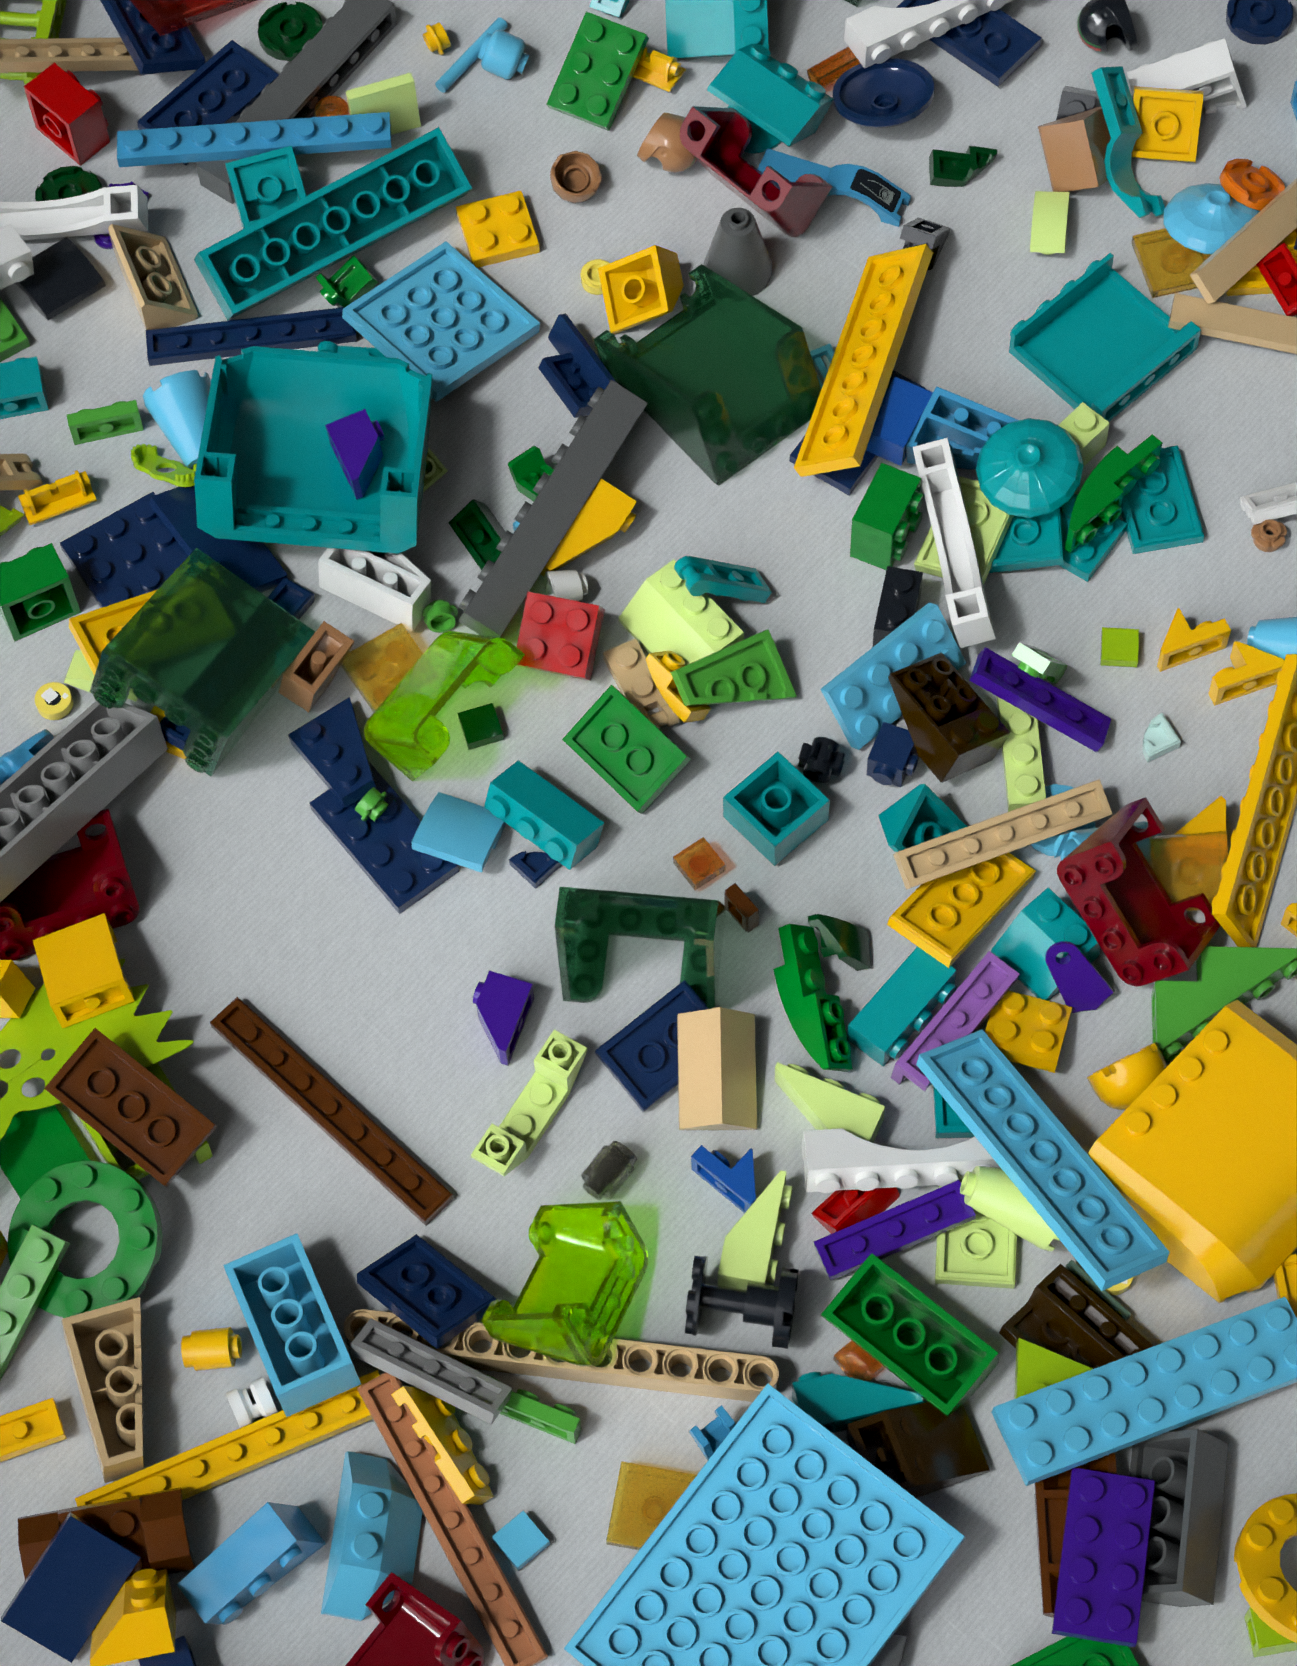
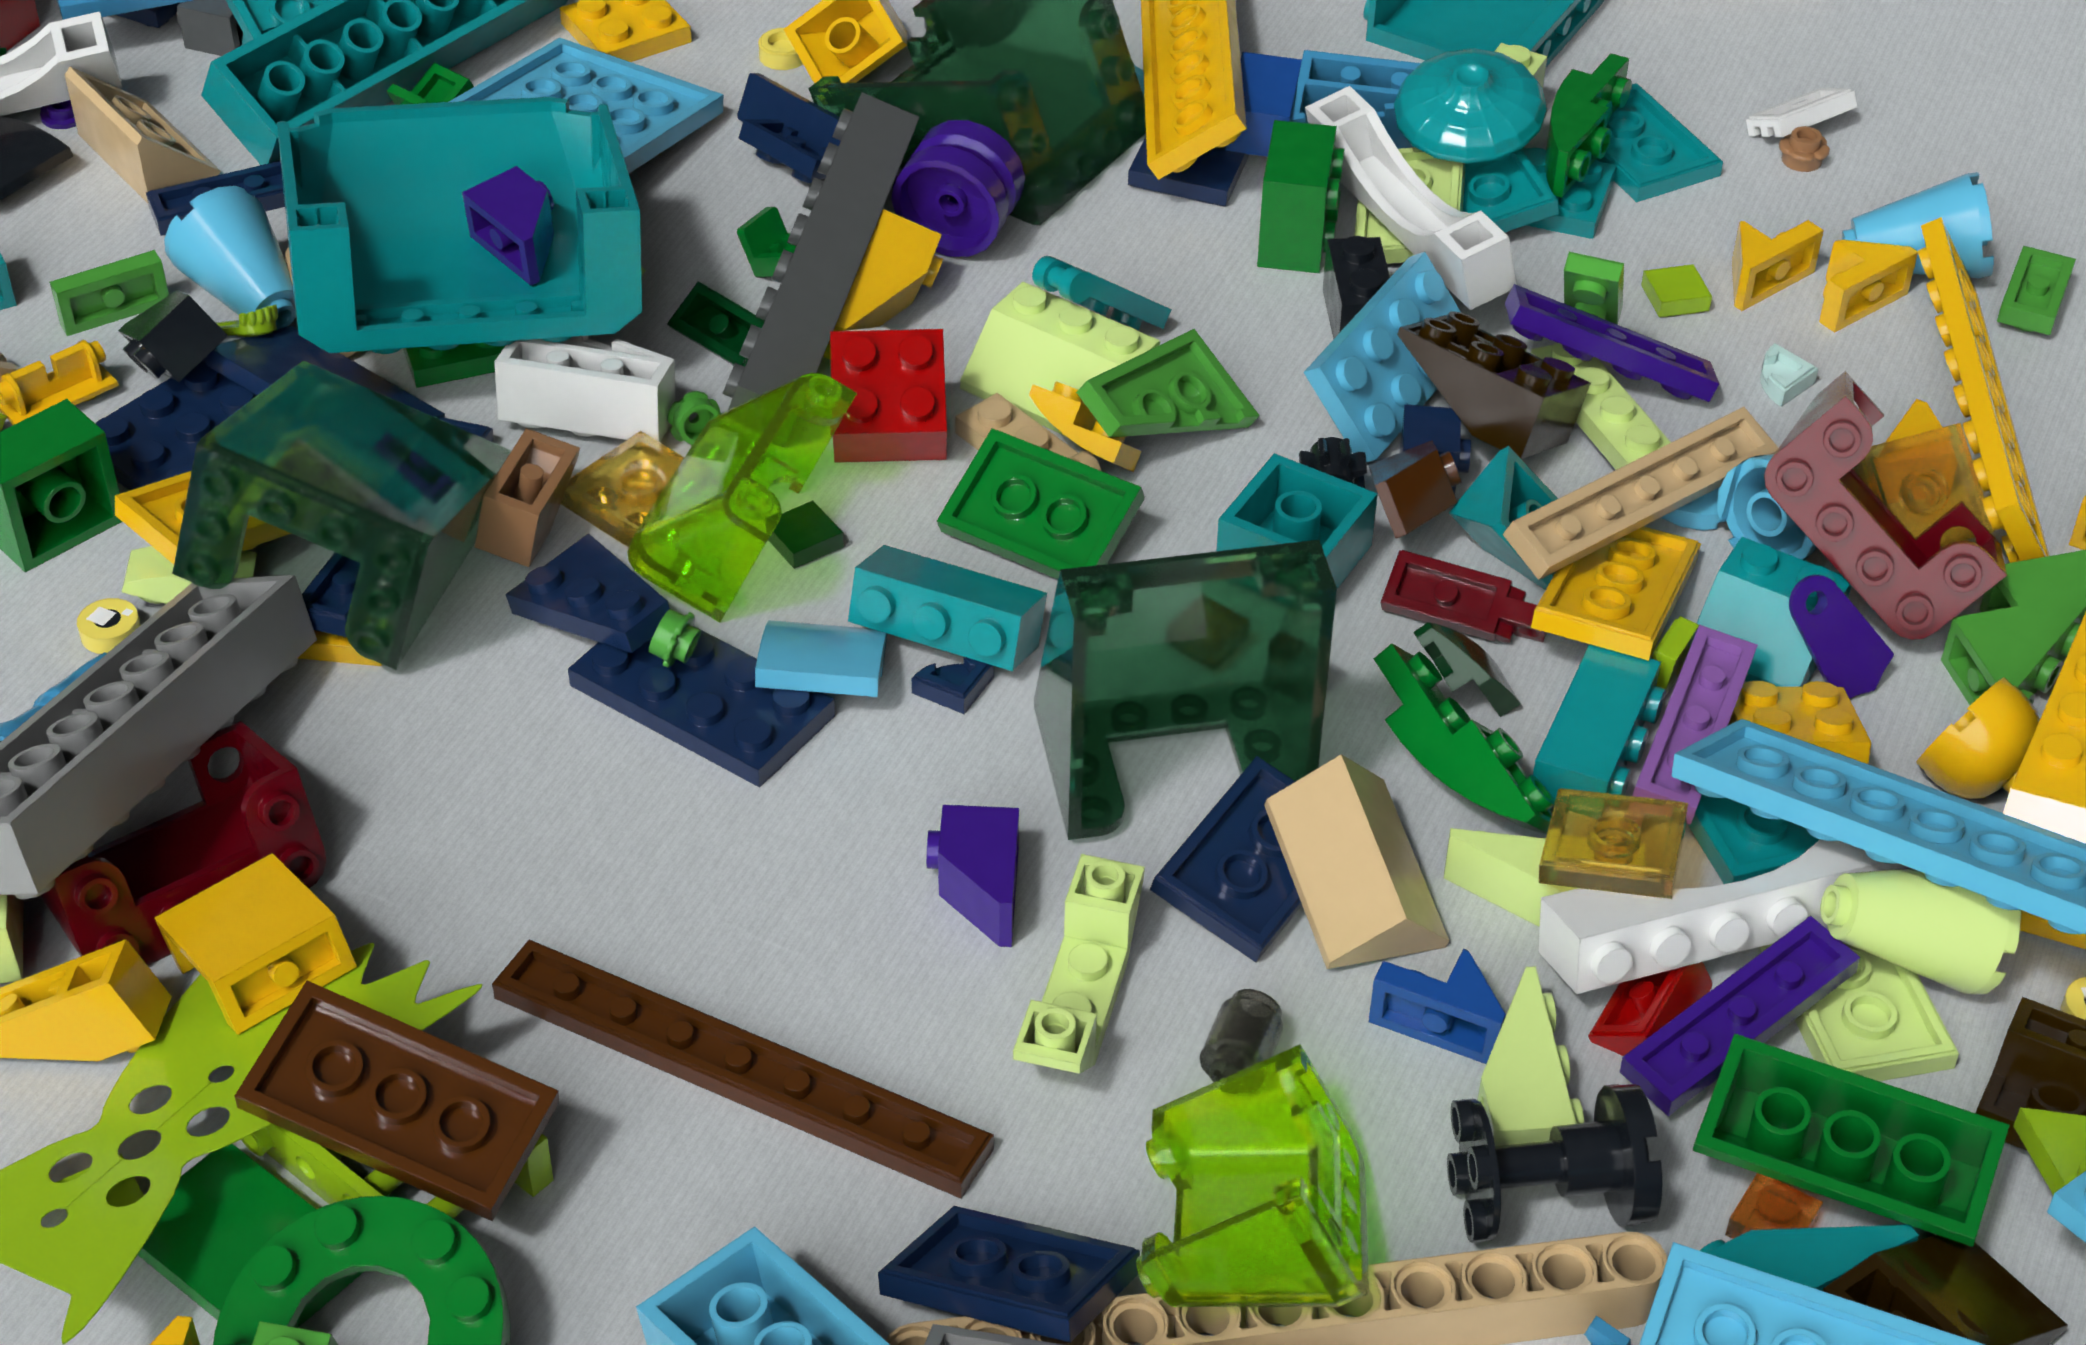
camera: 20 degrees left, 20 degrees down
(129, 486) = (171, 336): none -> black slope
(661, 461) = (960, 185): none -> dark purple wheel
(859, 793) = (1415, 486): none -> reddish brown slope
(859, 879) = (1458, 599): none -> dark red hinge
(861, 1104) = (1614, 843): none -> clear yellow plate
(971, 958) = (1674, 650): none -> lime tile

